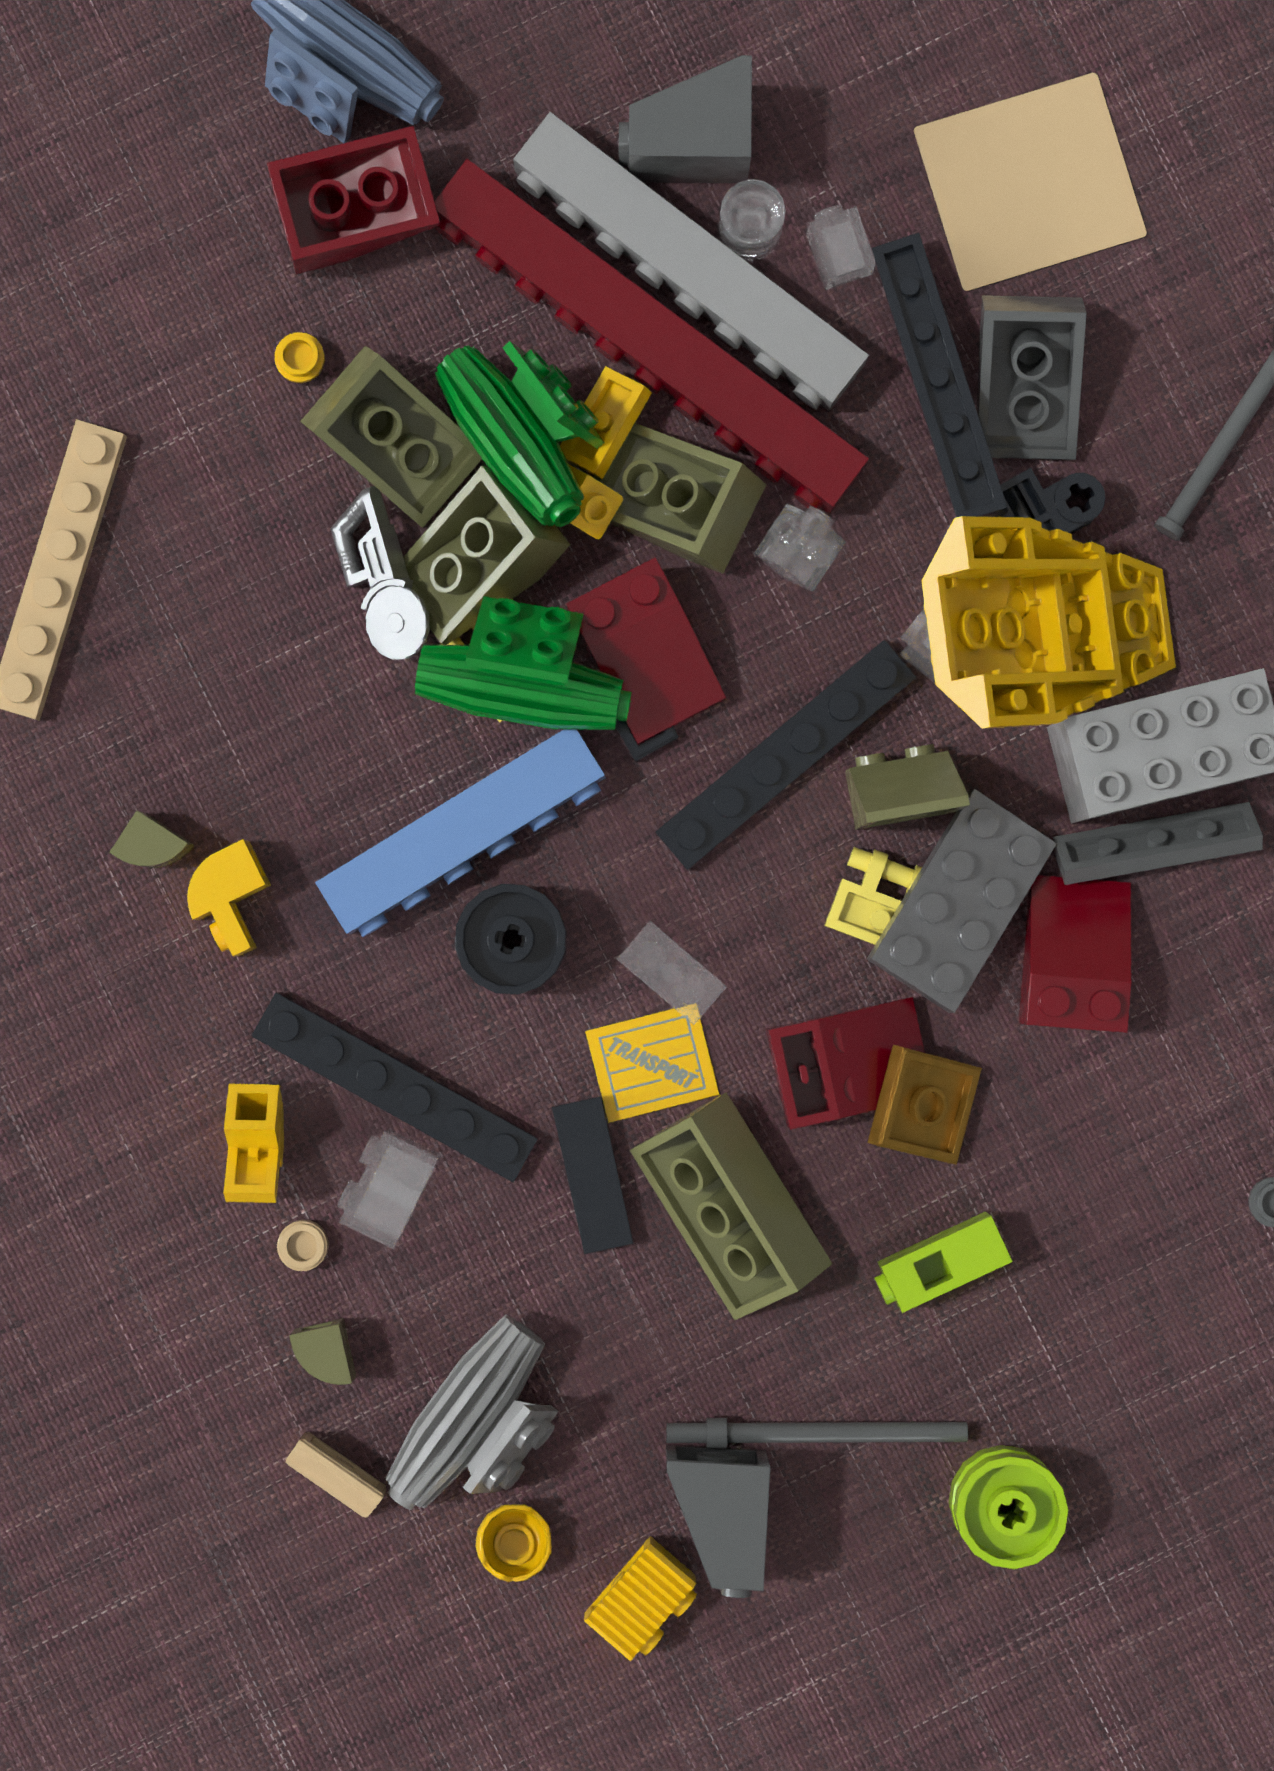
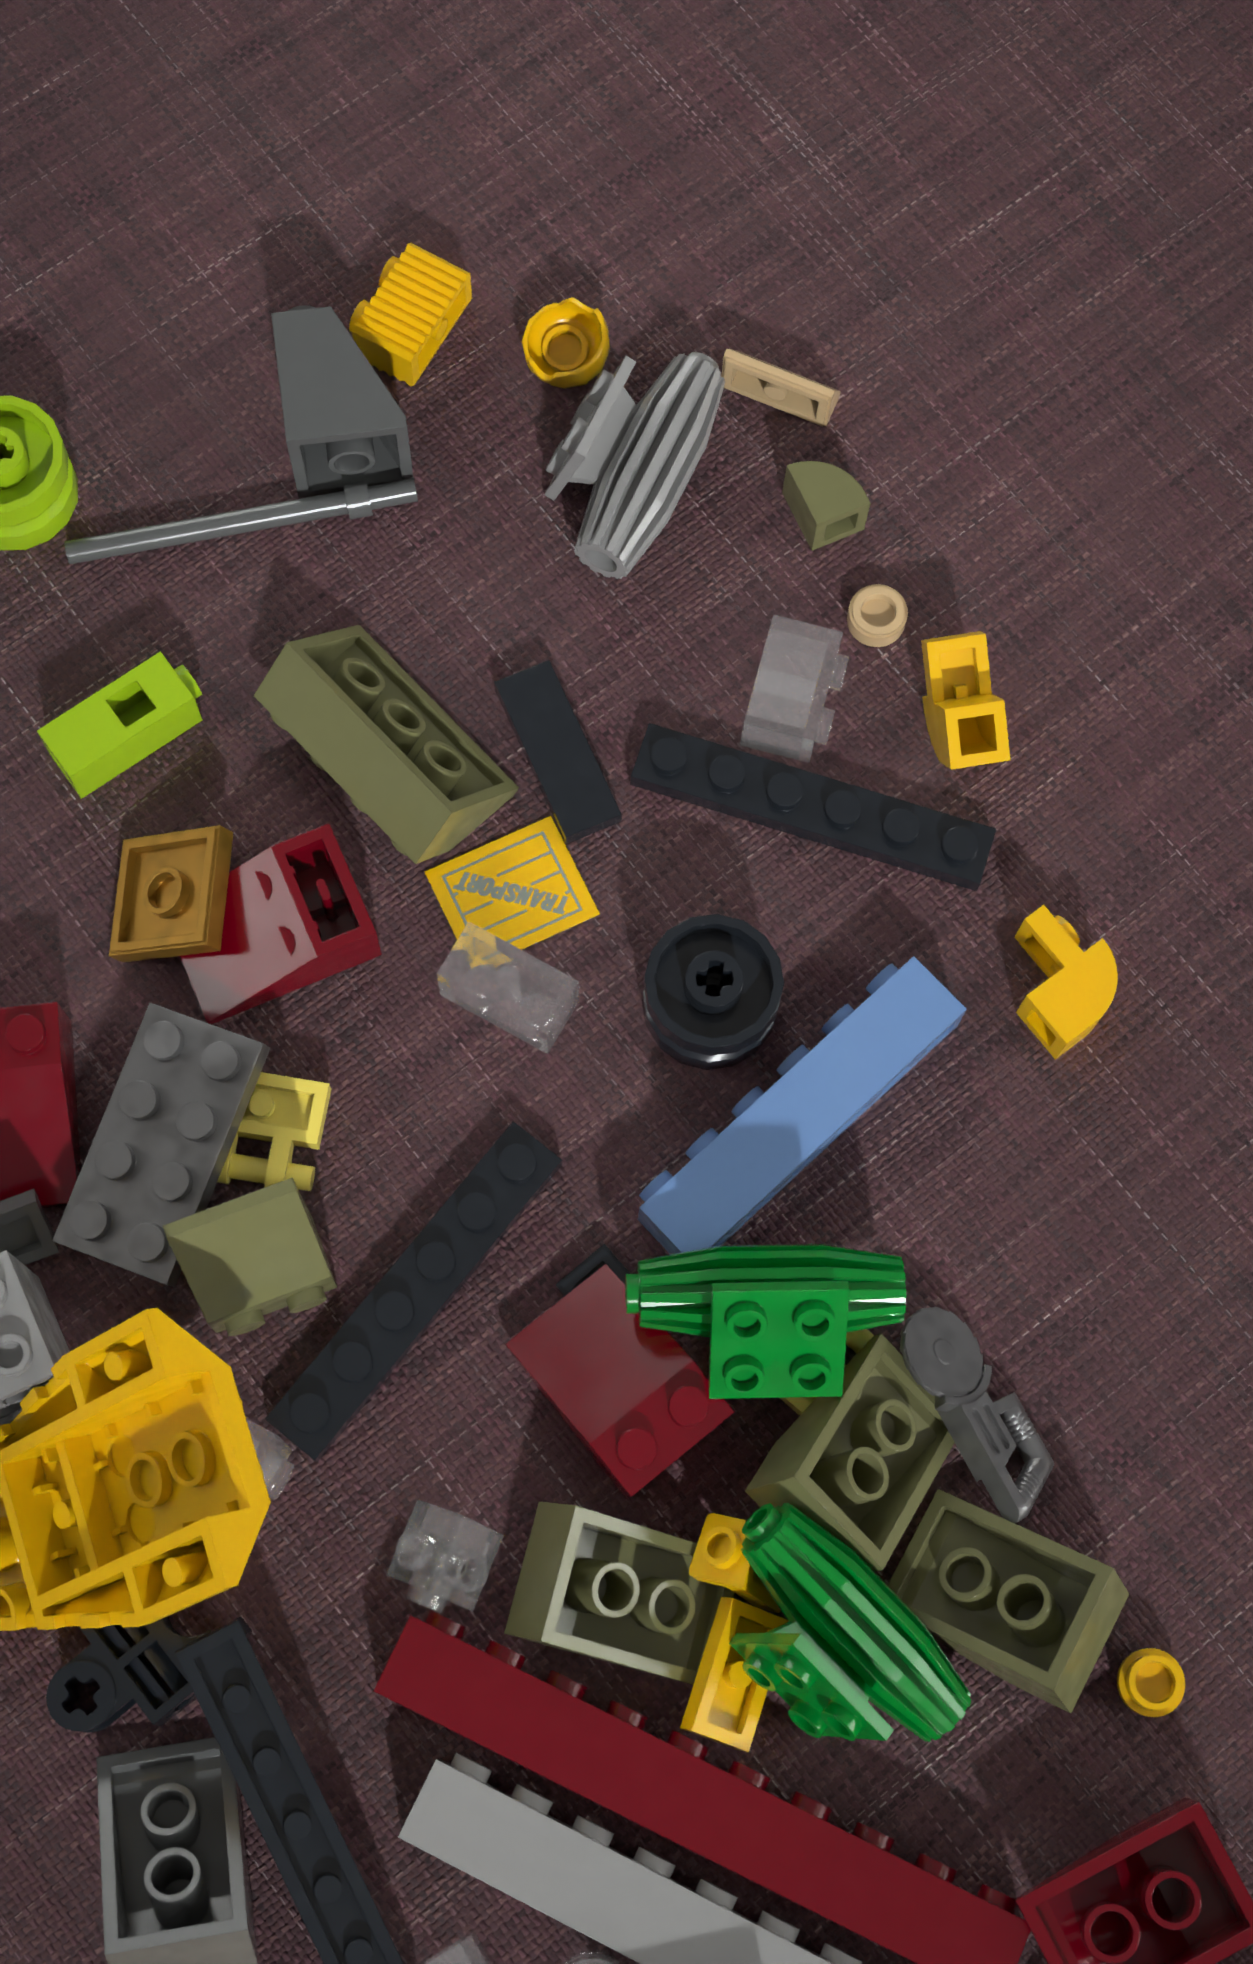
camera: 170 degrees right, 15 degrees down
(149, 843) = (1175, 1025): olive brick -> none

